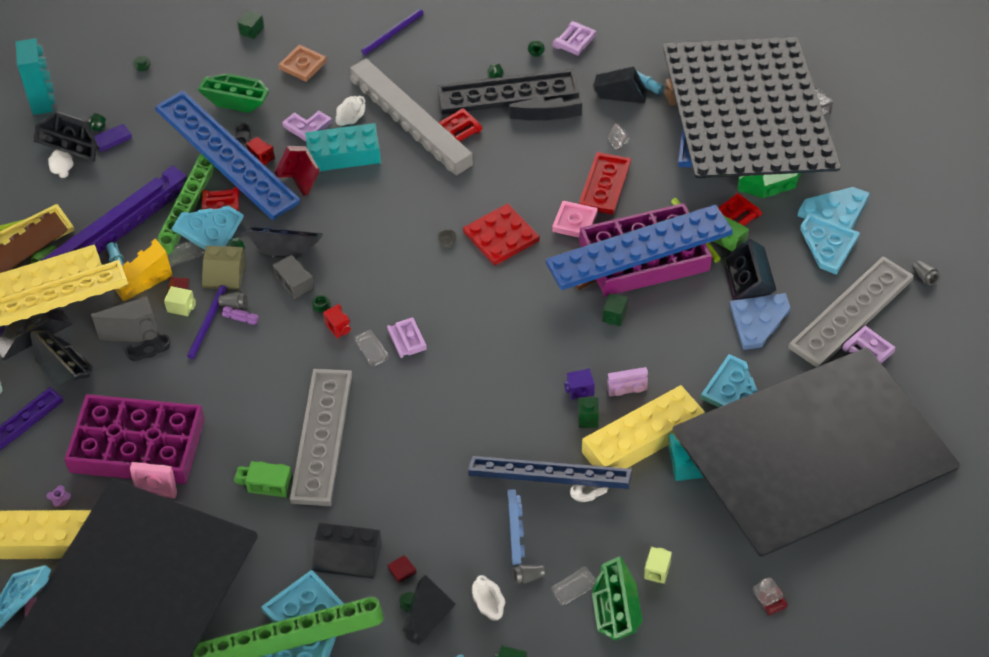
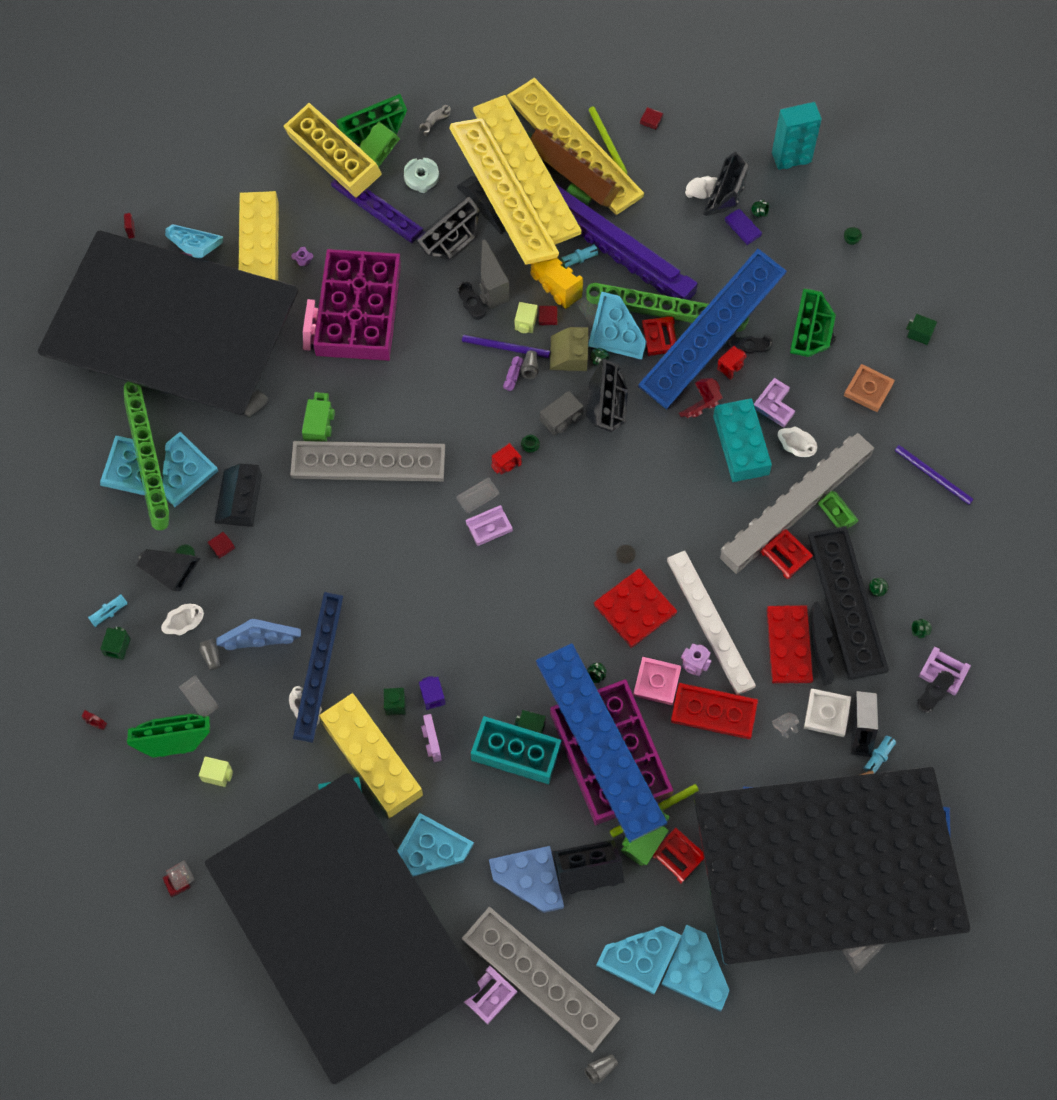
camera: 85 degrees right, 15 degrees up
(422, 91) = (837, 510): none -> bright green slope
(518, 183) = (711, 623): none -> white plate
(543, 132) = (789, 644): none -> red plate
(557, 190) = (696, 659): none -> lavender brick
(586, 35) = (926, 701): none -> black piece
(608, 110) = (827, 712): none -> white plate
(641, 318) = (516, 750): none -> teal brick

